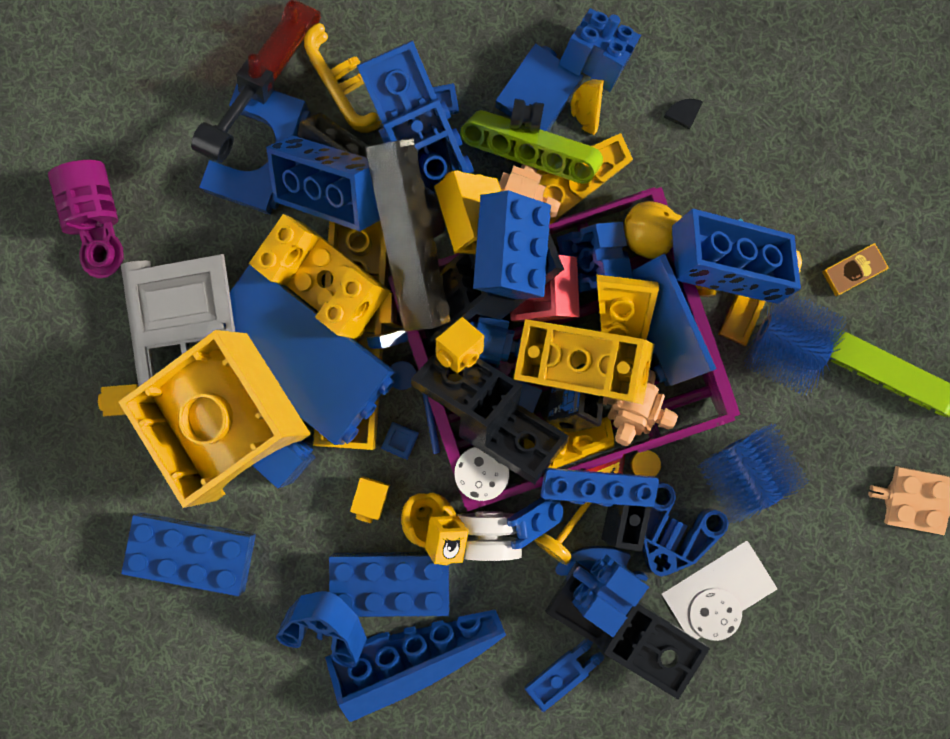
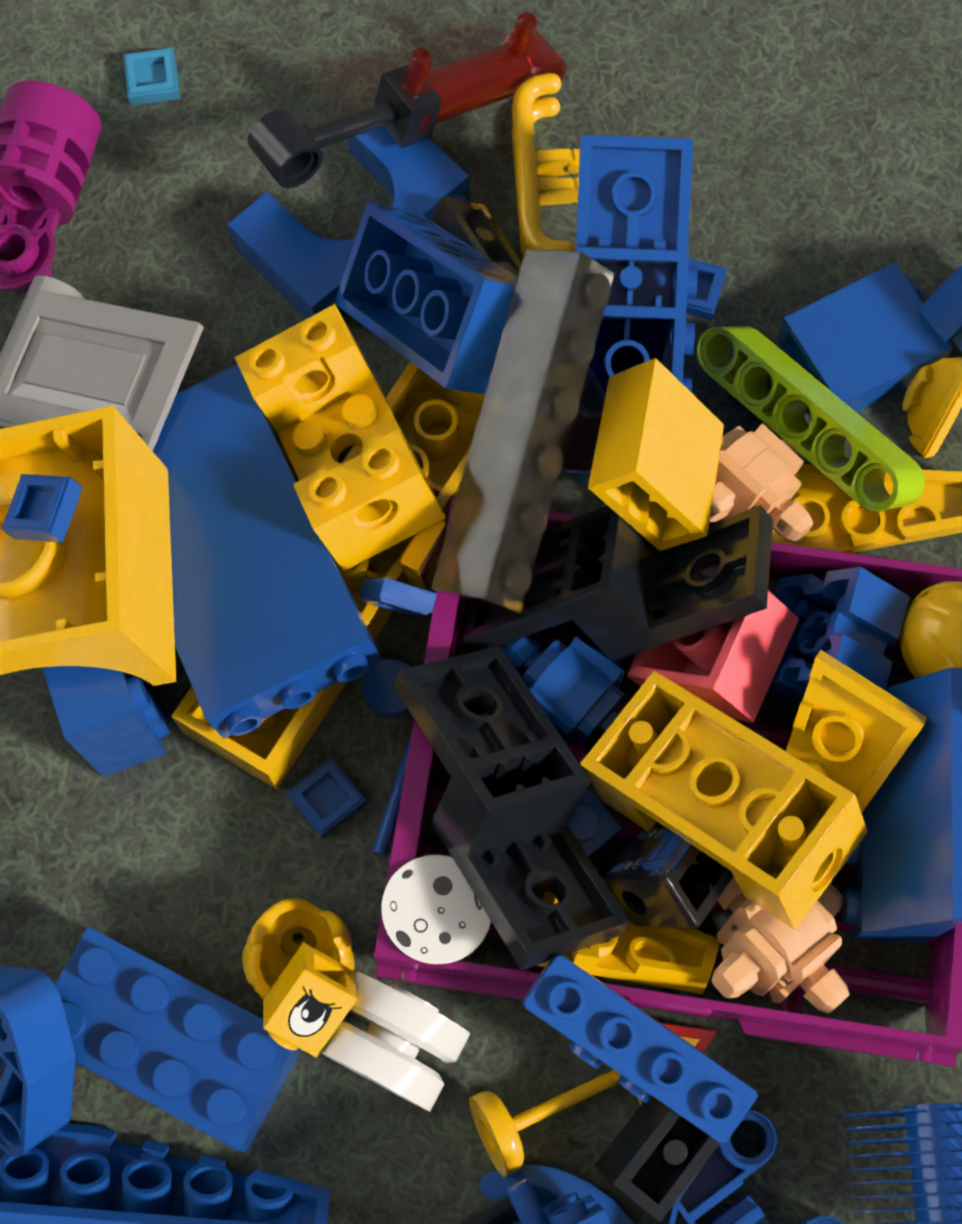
camera: 30 degrees right, 15 degrees down
(111, 120) = (151, 76): none -> dark azure tile
(211, 396) = (42, 508): none -> blue tile
(369, 499) = (216, 869): yellow brick -> none
(459, 346) = (514, 657): yellow brick -> none
(512, 245) = (693, 522): blue brick -> none
(526, 115) = (824, 358): black wheel -> none
(535, 521) = (493, 1055): blue hinge -> none
(645, 463) = (751, 1063): yellow tile -> none

